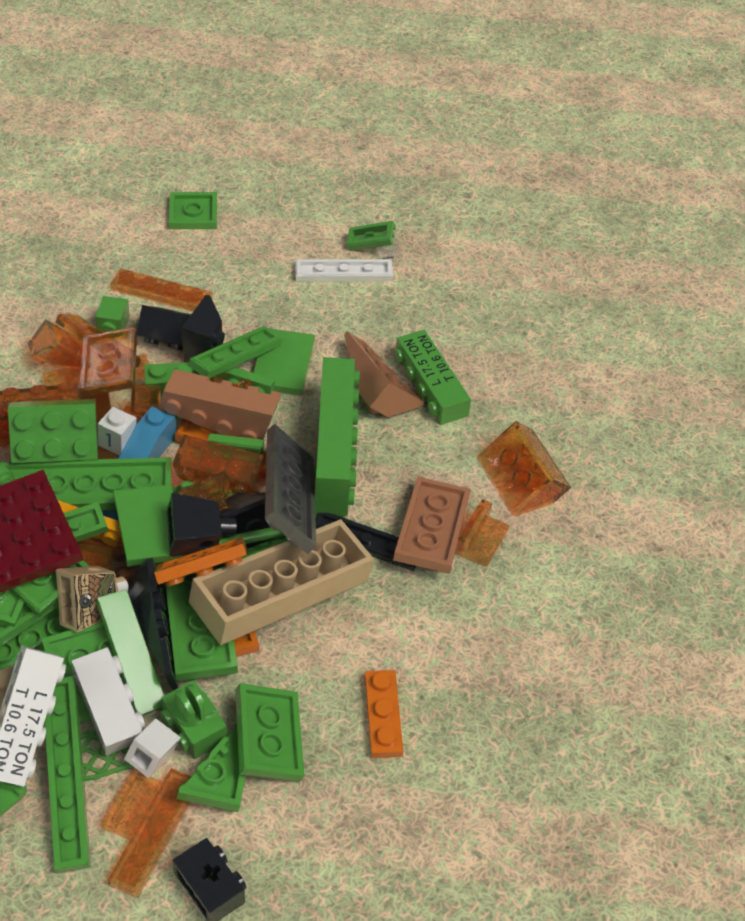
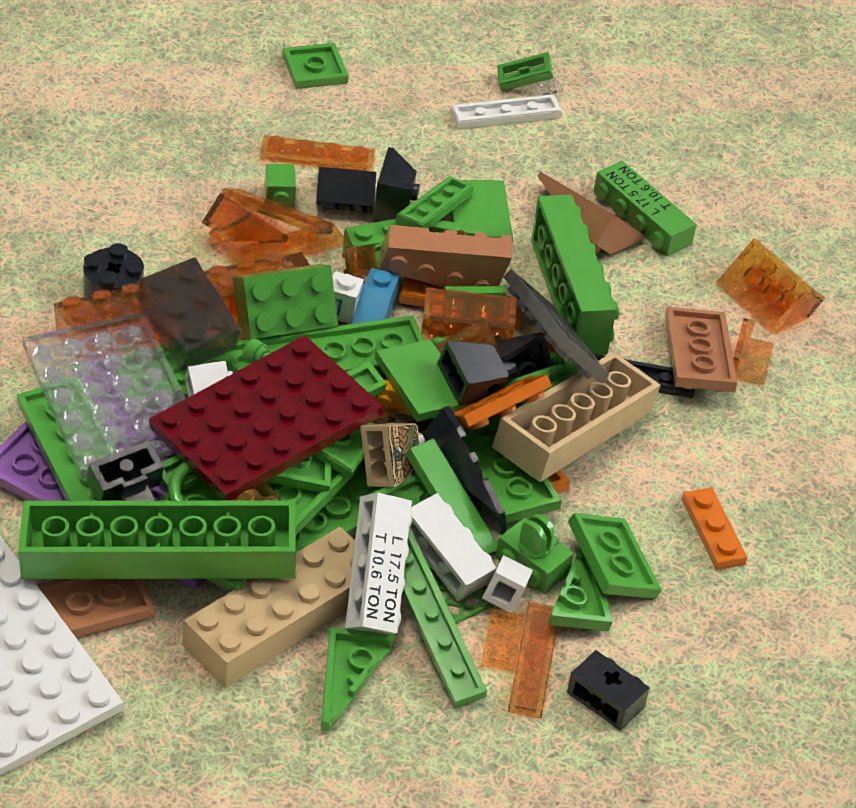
camera: 15 degrees left, 5 degrees down
(108, 362) = (310, 227): clear orange tile -> none

